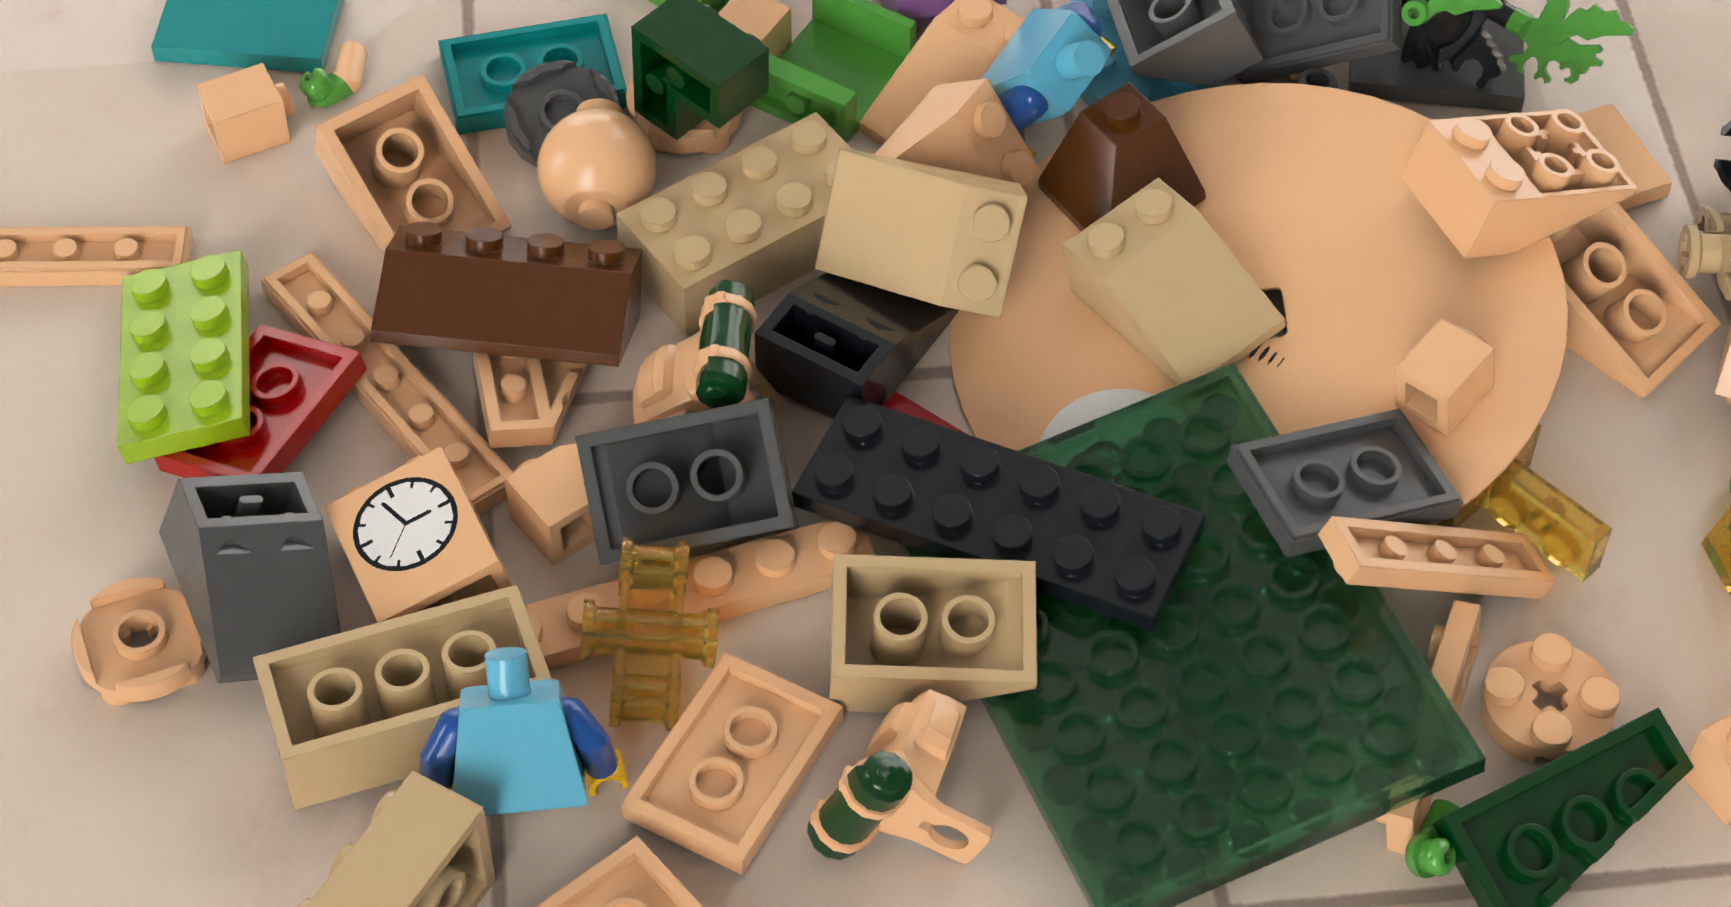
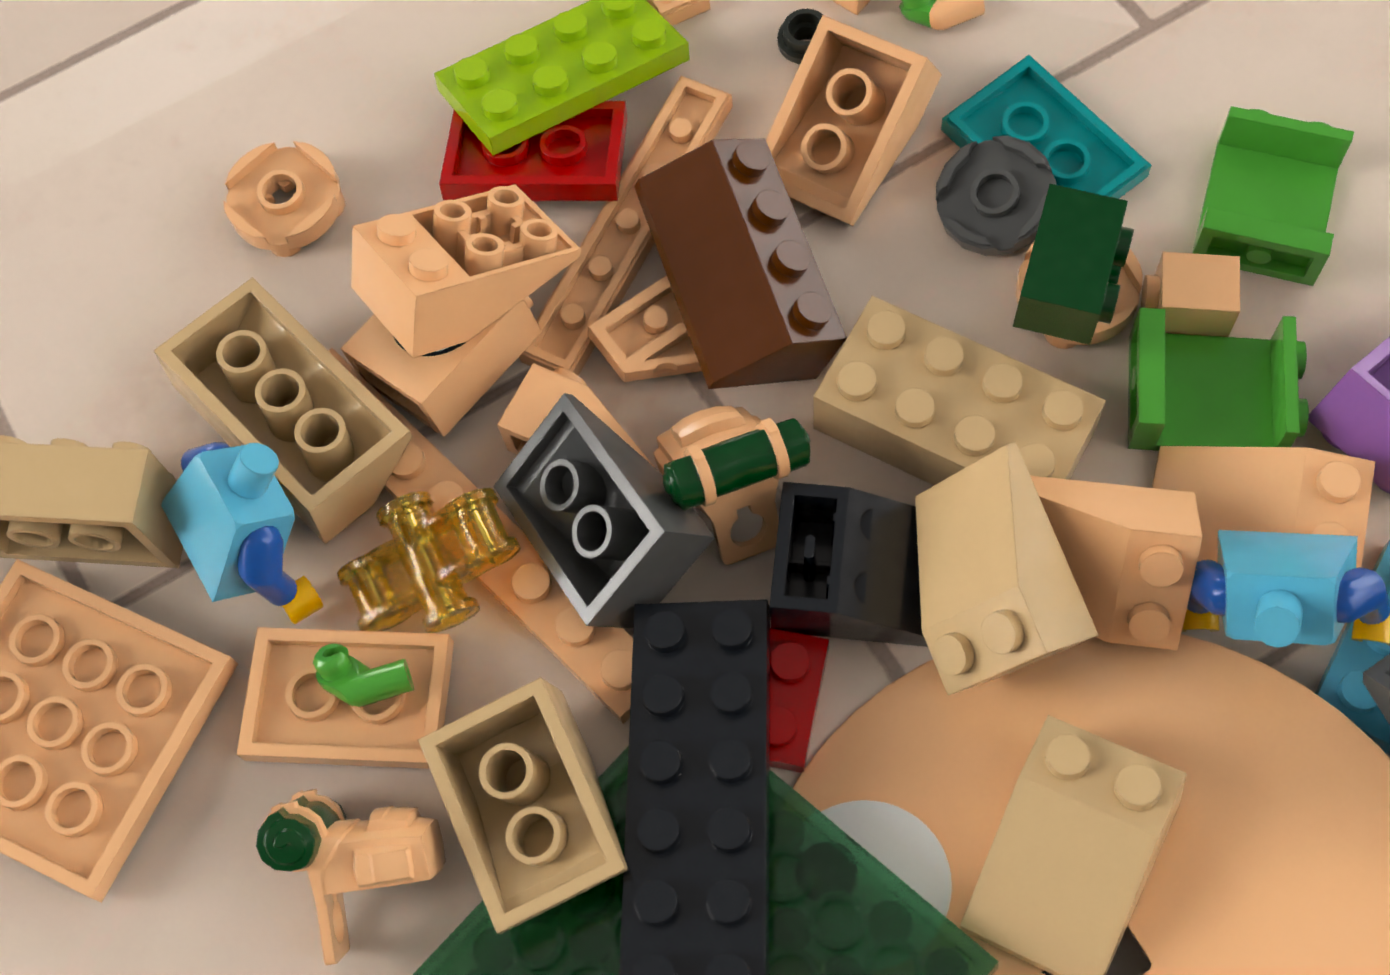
camera: 75 degrees right, 15 degrees up
(250, 566) = (309, 249): dark grey slope -> none
(293, 177) = (796, 27): none -> pearl dark grey plate
(378, 477) = (455, 265): none -> light nougat slope
(596, 164) = (931, 251): light nougat brick -> none
(724, 735) = (356, 682): none -> bright green arm
(1113, 155) = (1218, 722): reddish brown slope -> none

